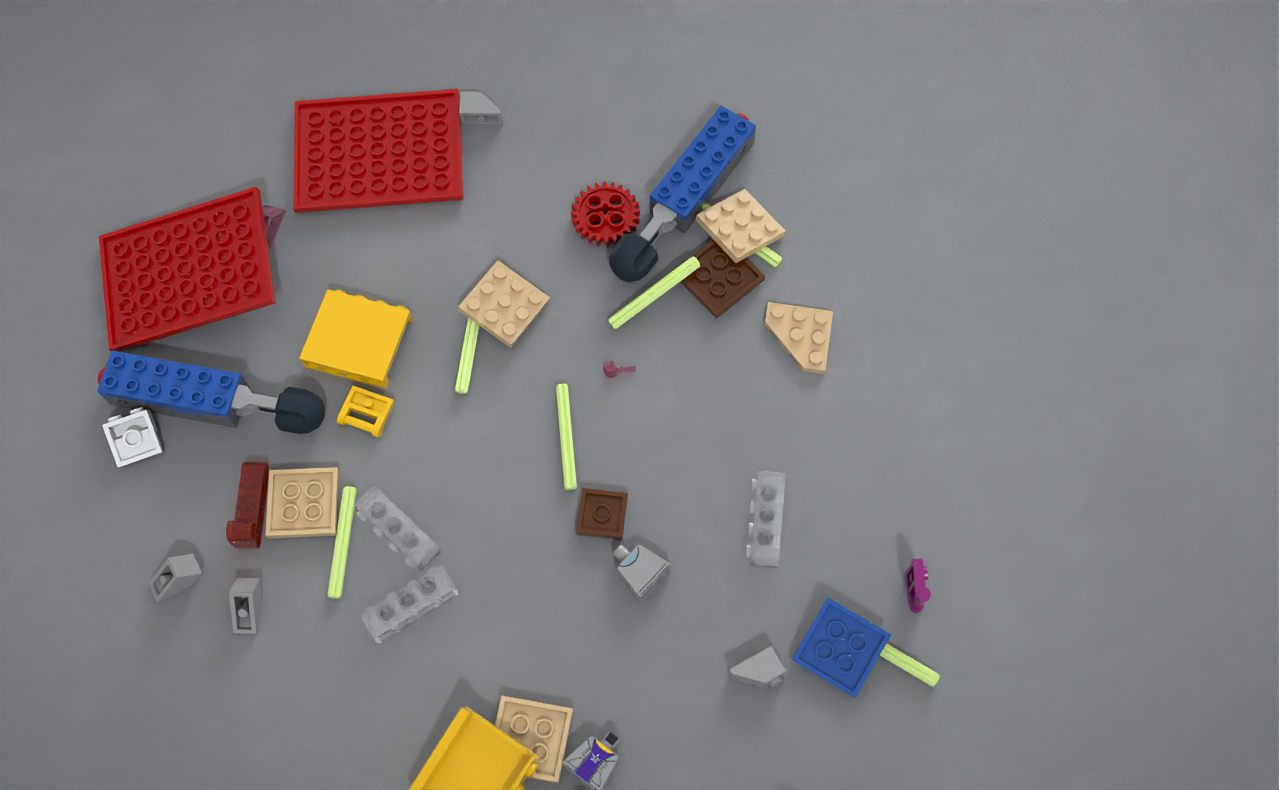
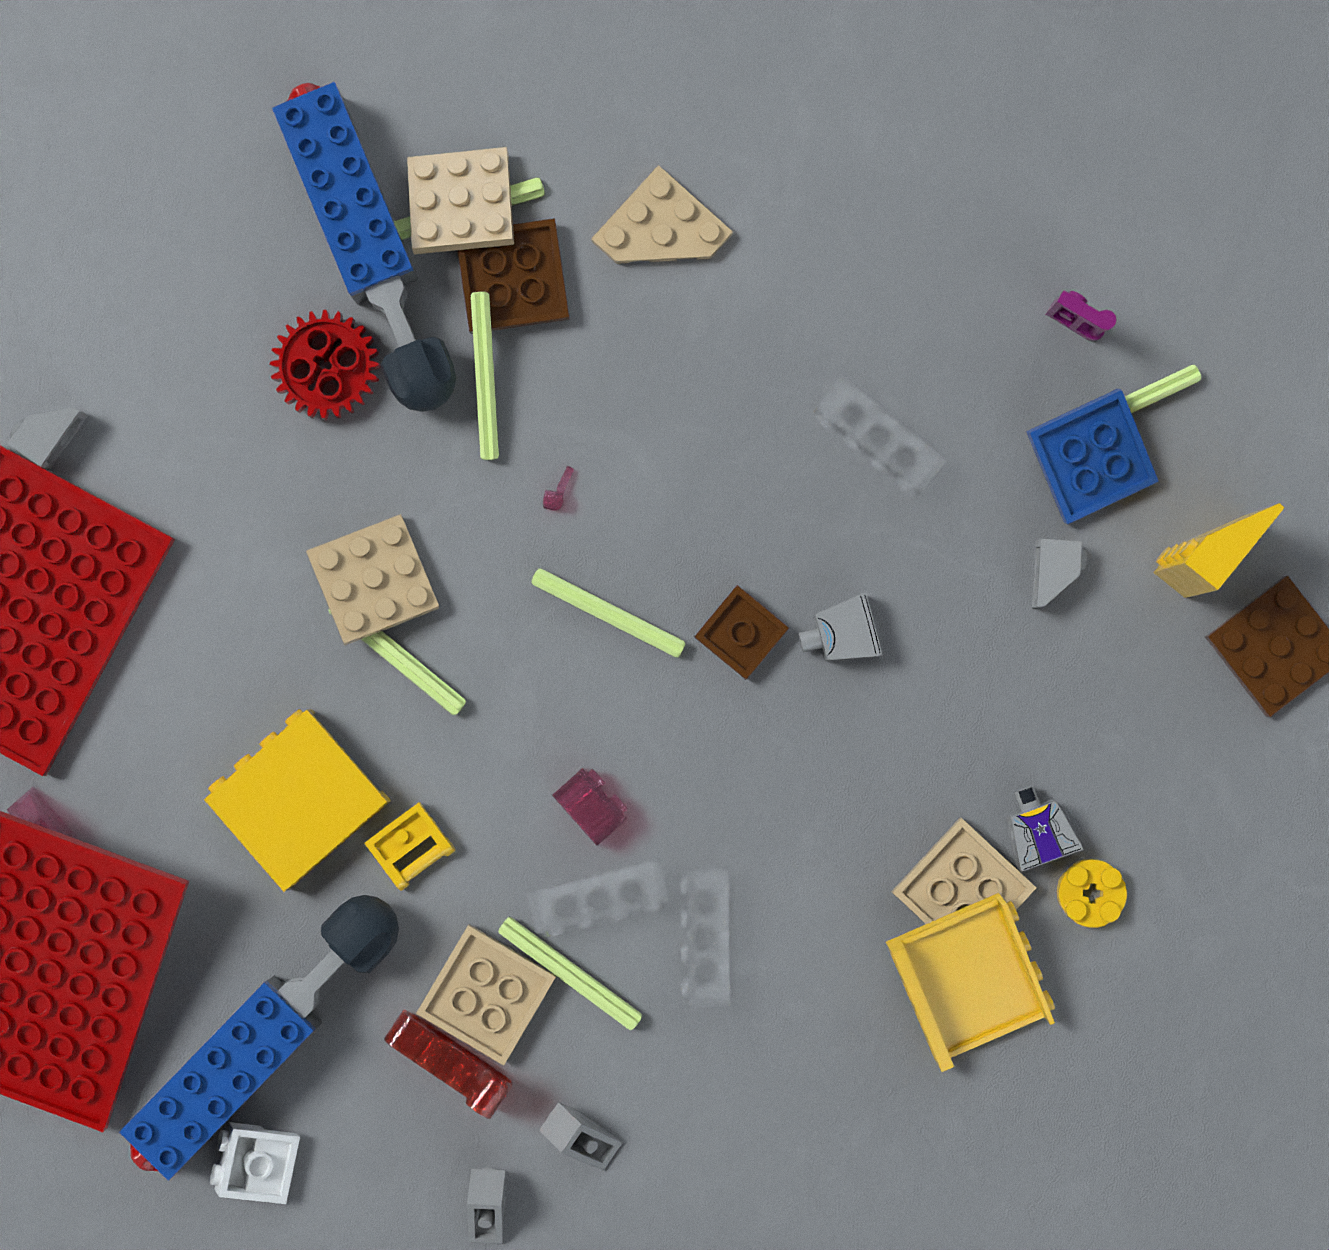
camera: 55 degrees left, 20 degrees up
(448, 492) = (590, 805): none -> clear pink brick
(834, 746) = (1210, 558): none -> yellow slope

